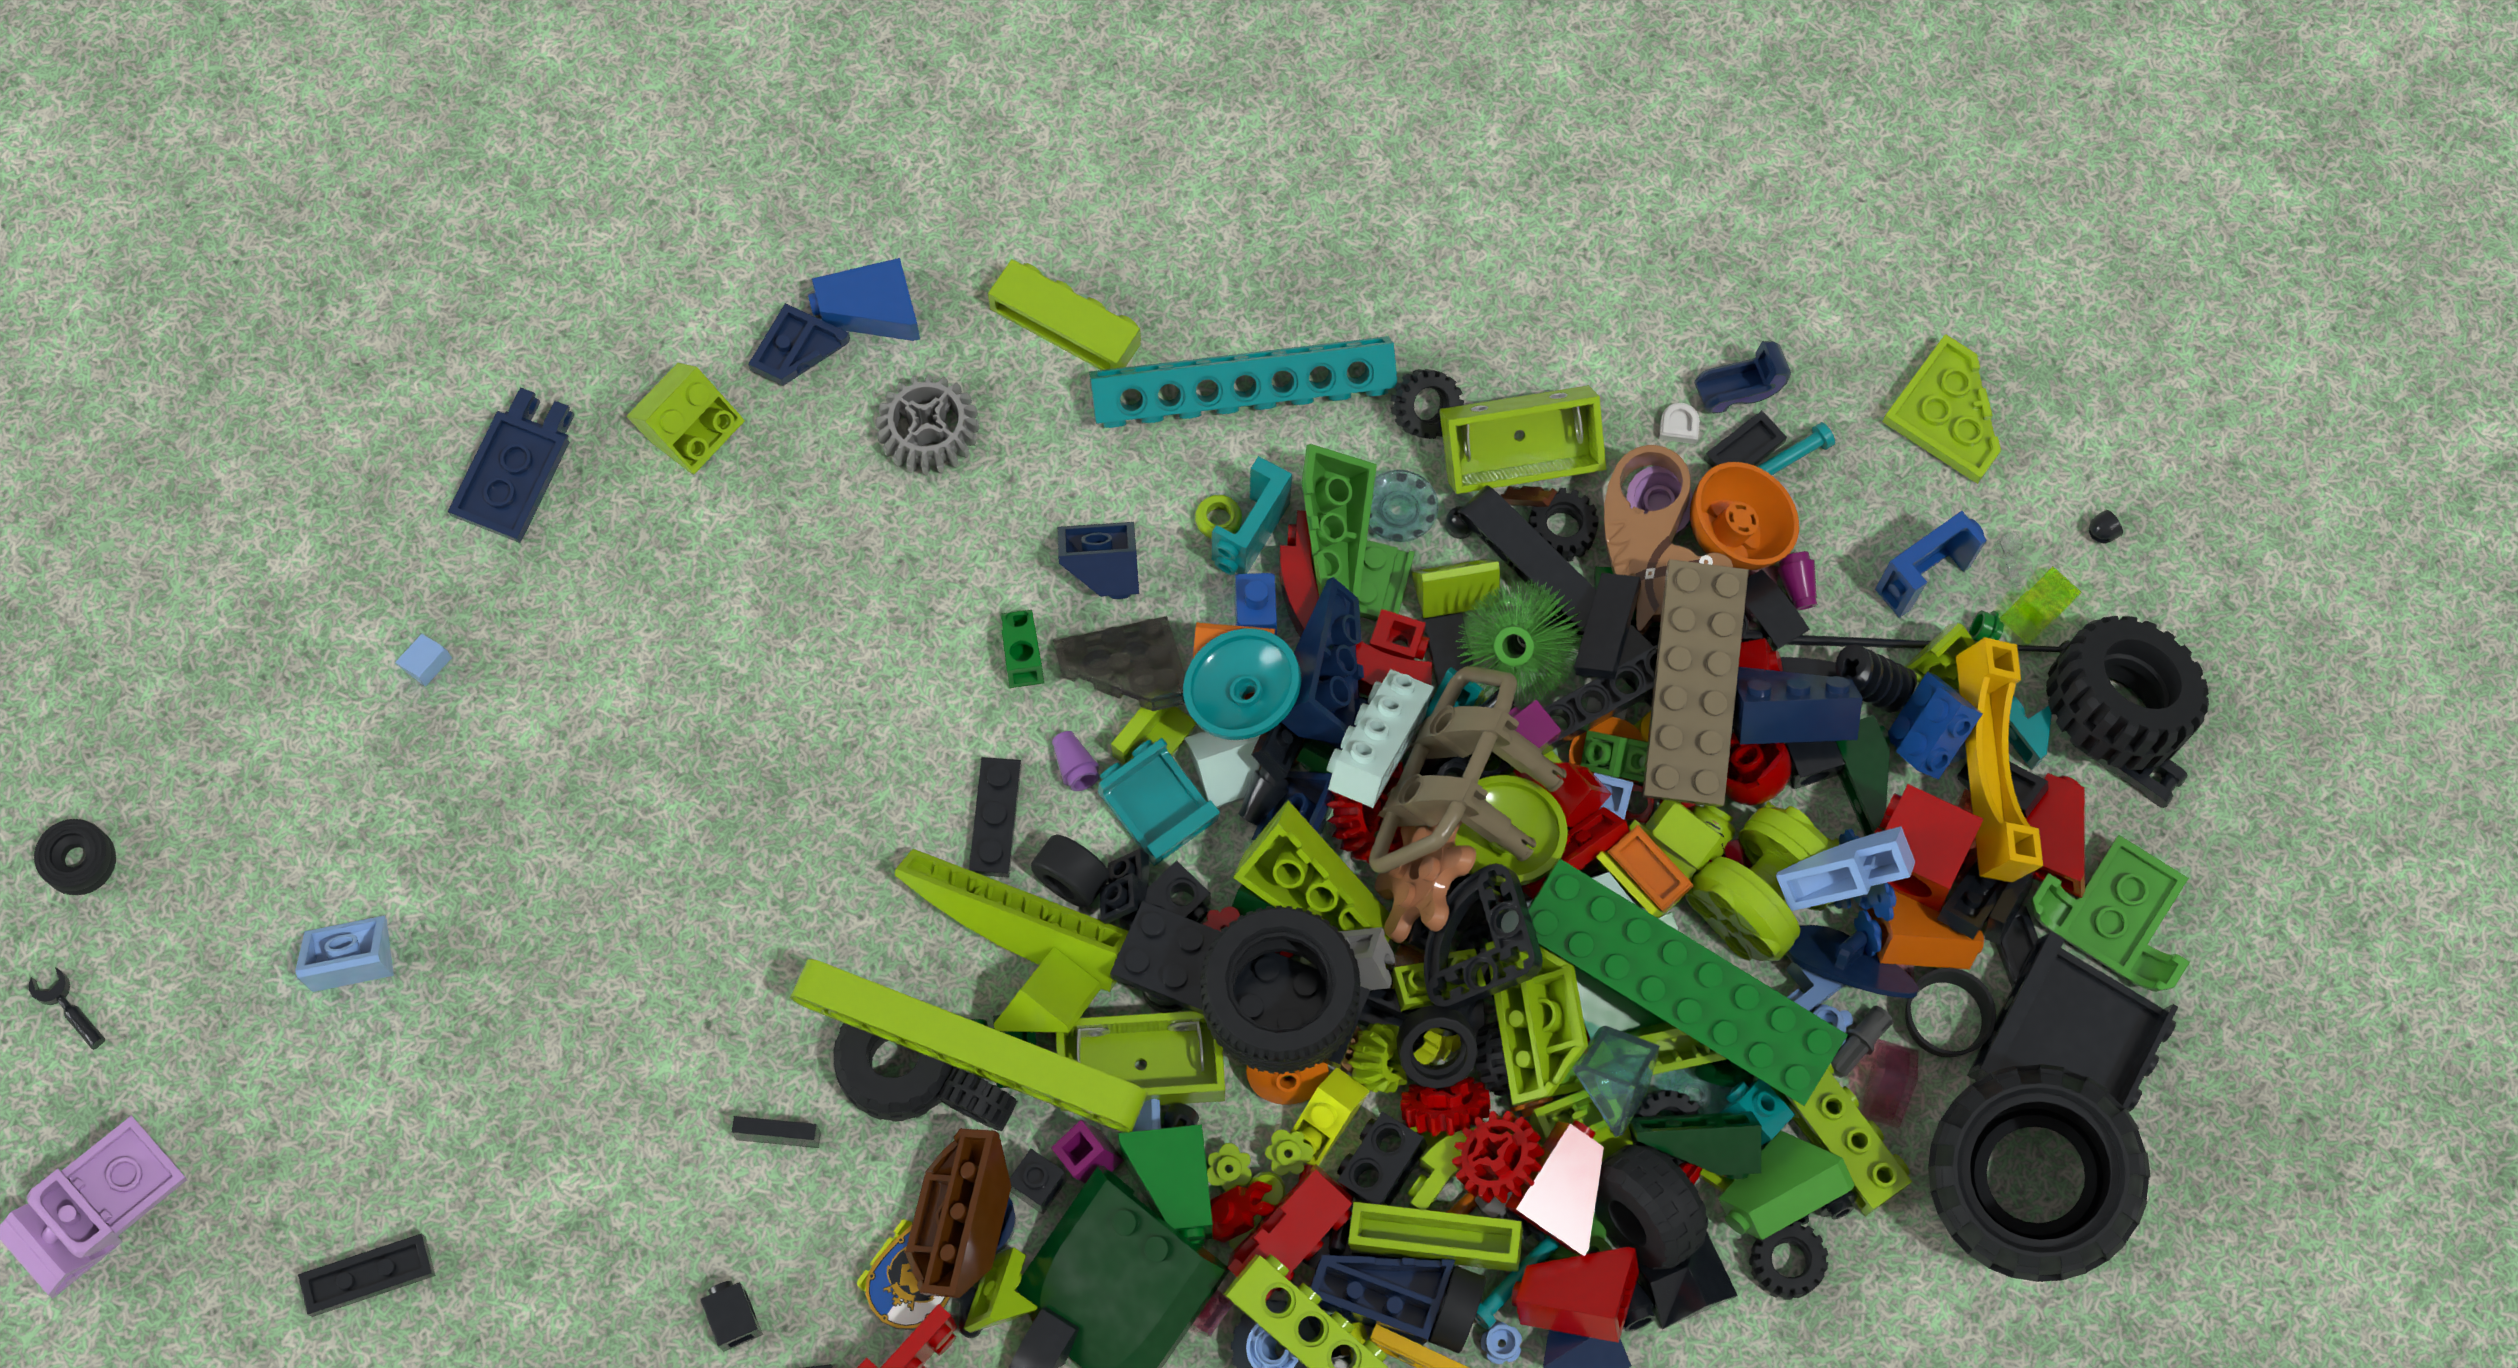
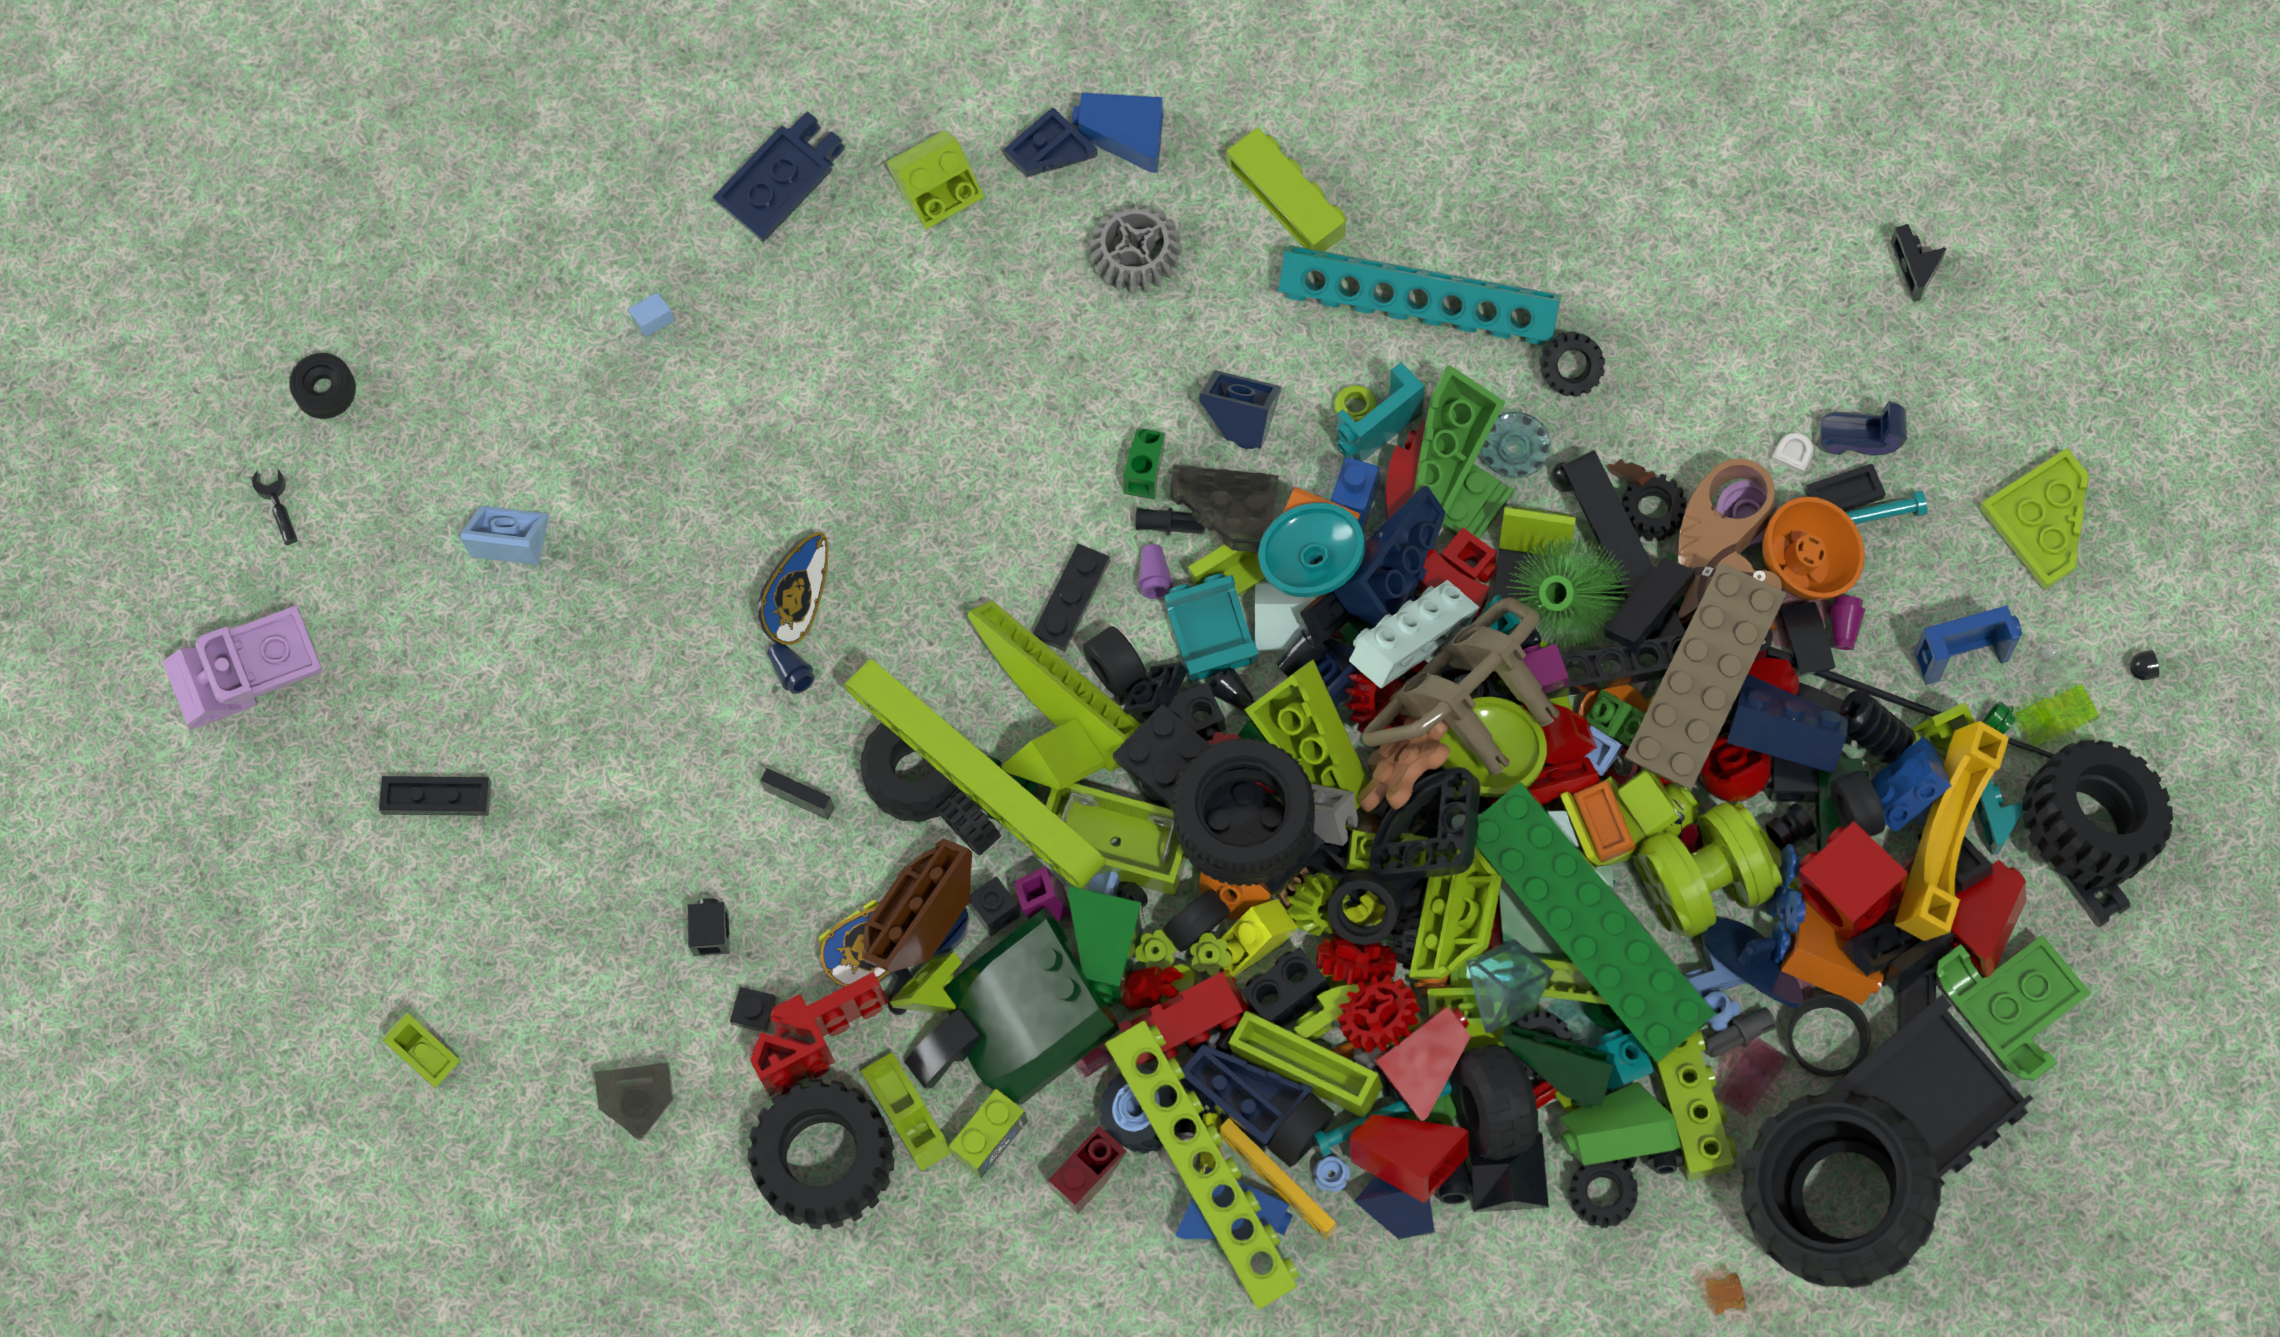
camera: 30 degrees right, 0 degrees up
(693, 910) = (794, 591): none -> shield
(718, 996) = (791, 669): none -> dark blue cone
(1068, 702) = (1167, 521): none -> black axle
(1204, 860) = (1231, 689): none -> black cone
(1261, 1121) = (1196, 919): none -> black tyre
(1558, 440) = (1674, 434): lime piece -> none
(1726, 199) = (1916, 266): none -> black slope
(1829, 809) = (1790, 827): none -> black wheel
(1847, 869) = (1770, 875): light blue slope -> none
(1894, 762) = (1857, 801): none -> black tyre
(1953, 1323) = (1725, 1293): none -> clear orange wheel

